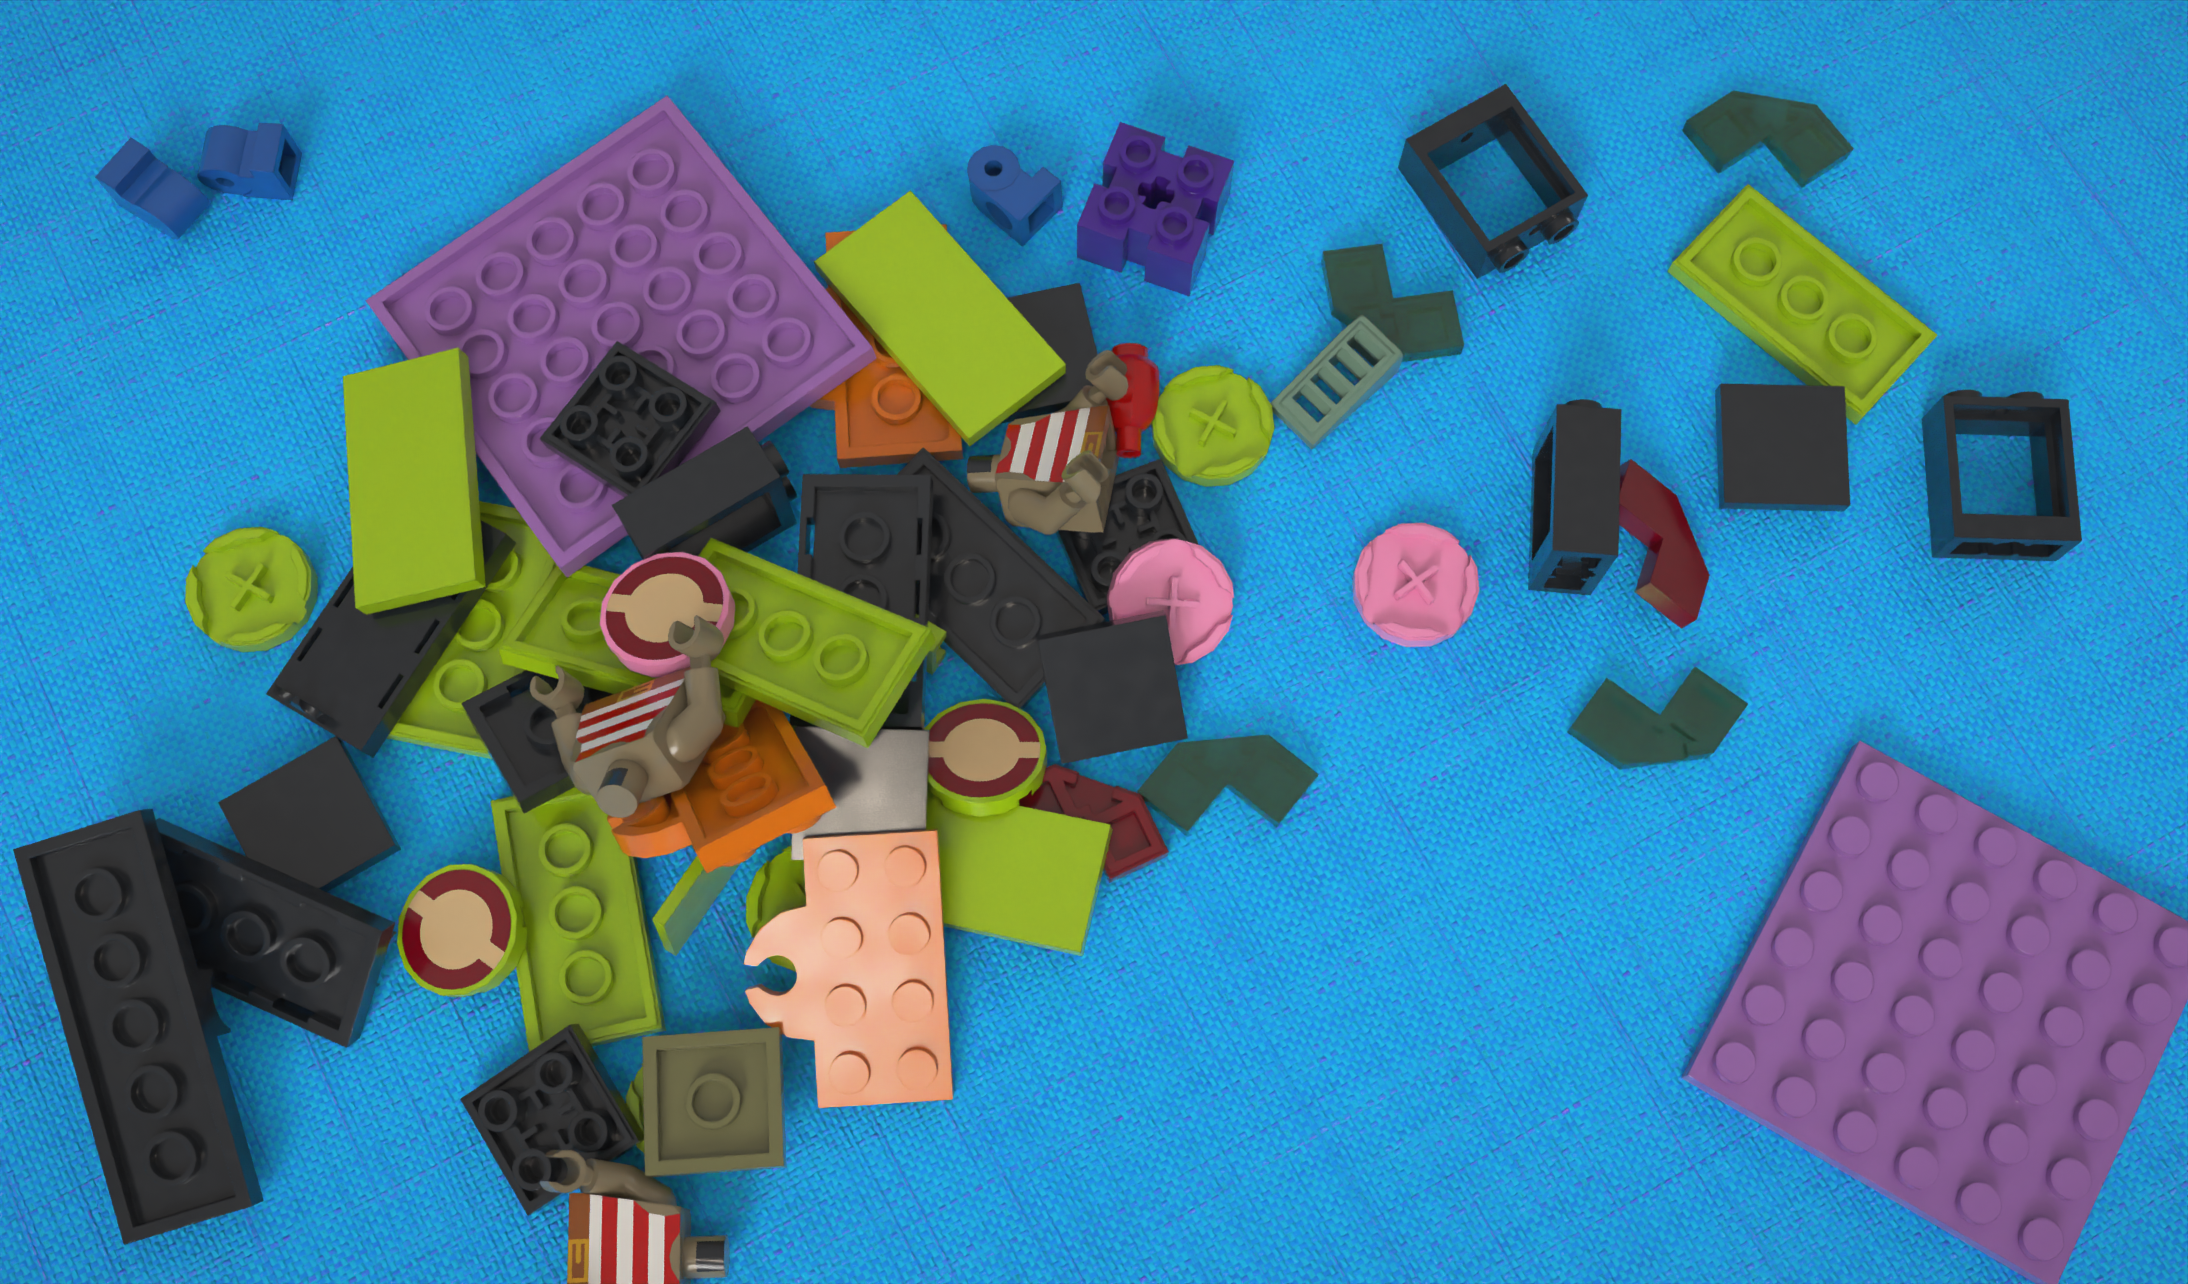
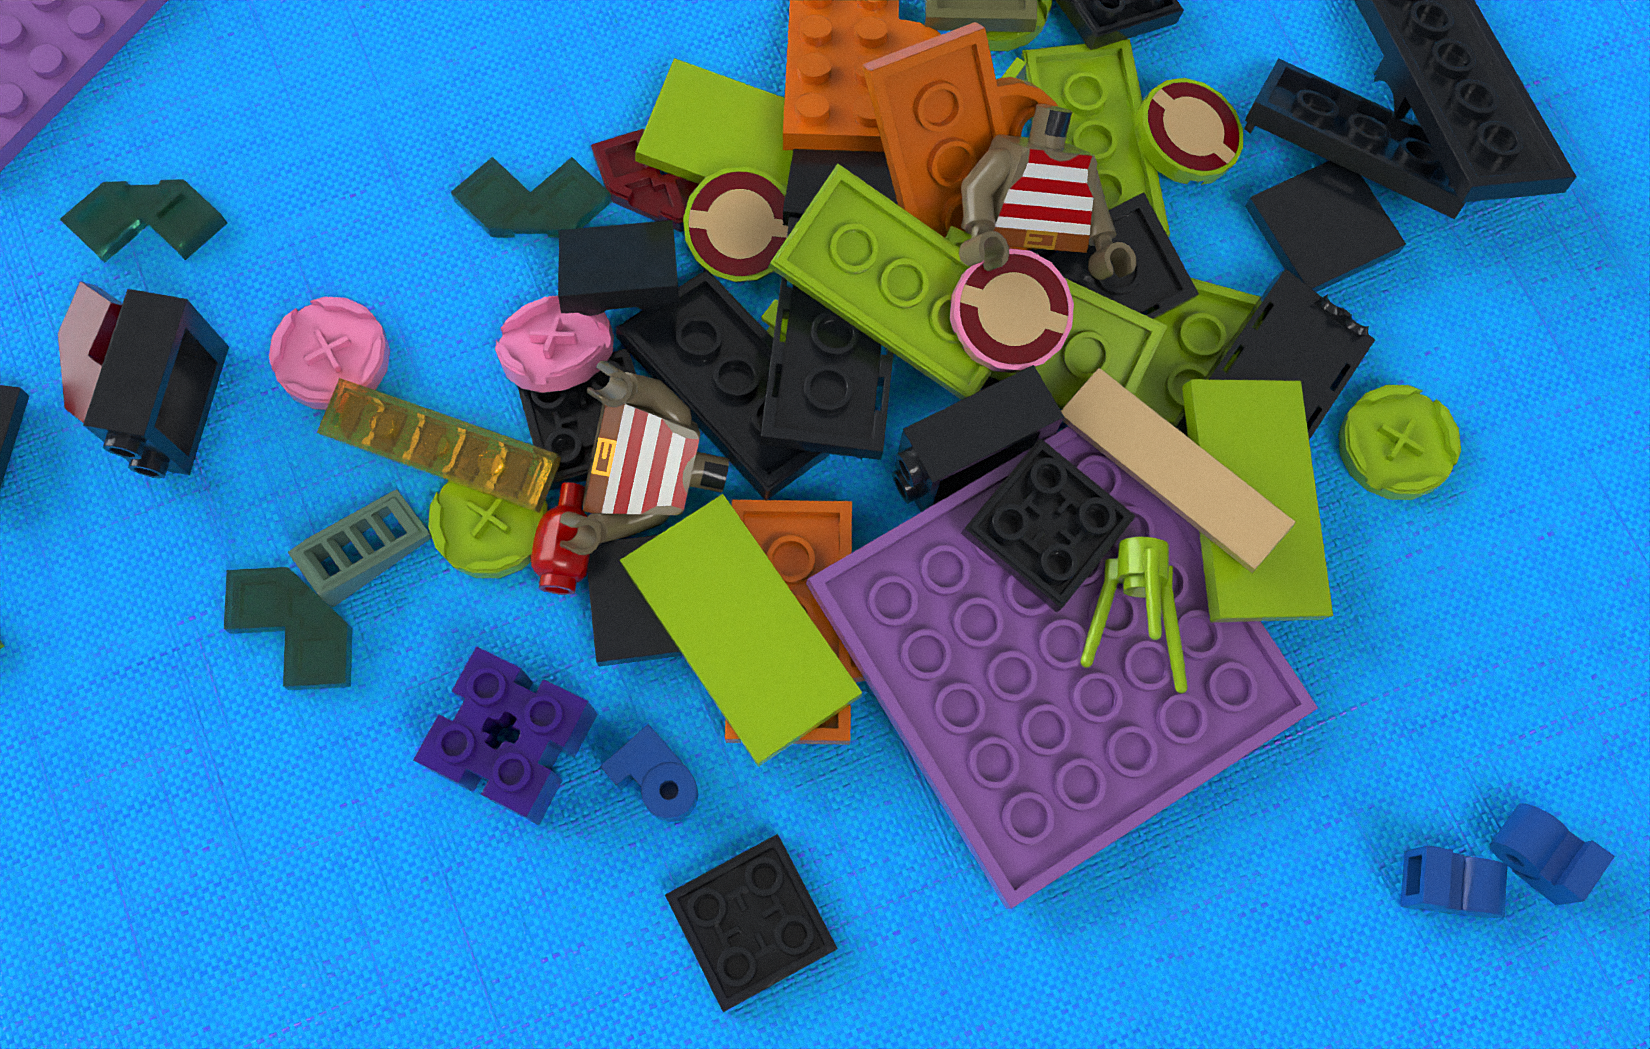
camera: 175 degrees left, 0 degrees up
(497, 479) = (1176, 470): none -> tan tile
(531, 381) = (1146, 574): none -> lime plant
(909, 88) = (750, 922): none -> black tile
(1273, 478) = (439, 445): none -> clear yellow tile
(1468, 129) = (104, 688): black window -> none

